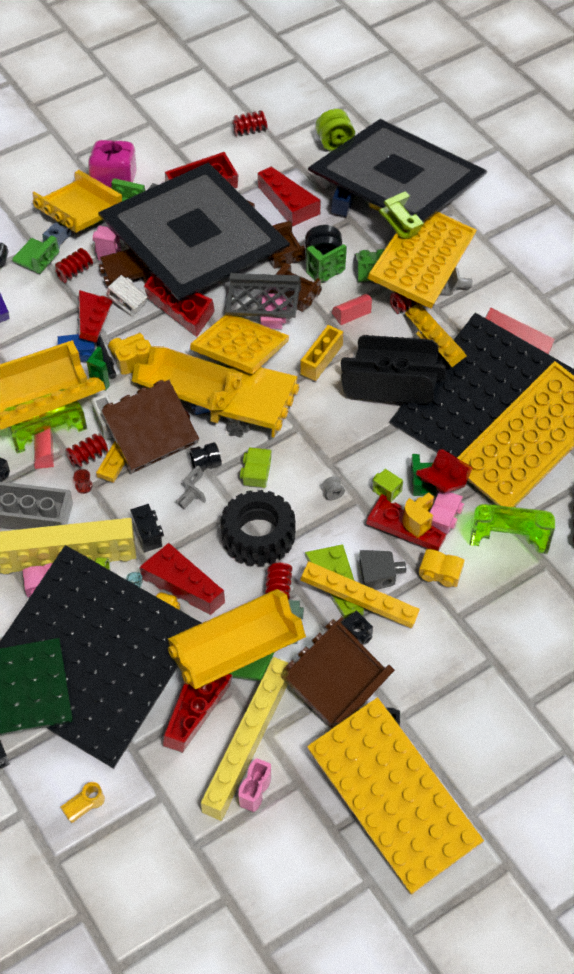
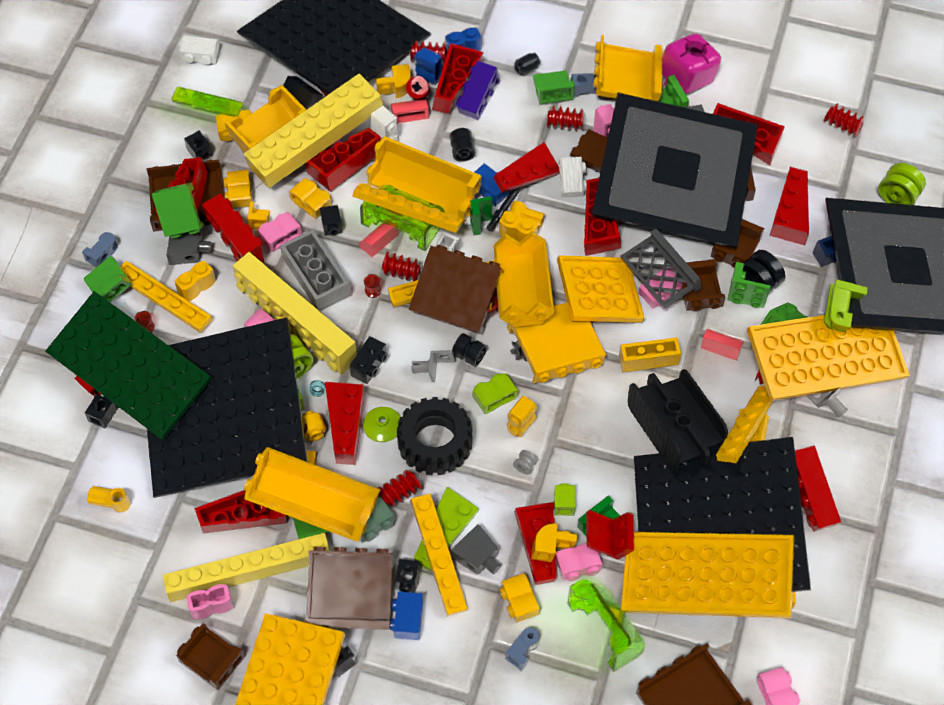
camera: 50 degrees right, 5 degrees up
(22, 339) = (462, 144): none -> black wheel
(210, 566) = (381, 431): none -> lime dish
(297, 461) = (521, 416): none -> yellow brick
(301, 820) = (209, 656): none -> reddish brown panel
(391, 651) = (407, 615): none -> blue brick
(482, 595) = (525, 642): none -> sand blue leg

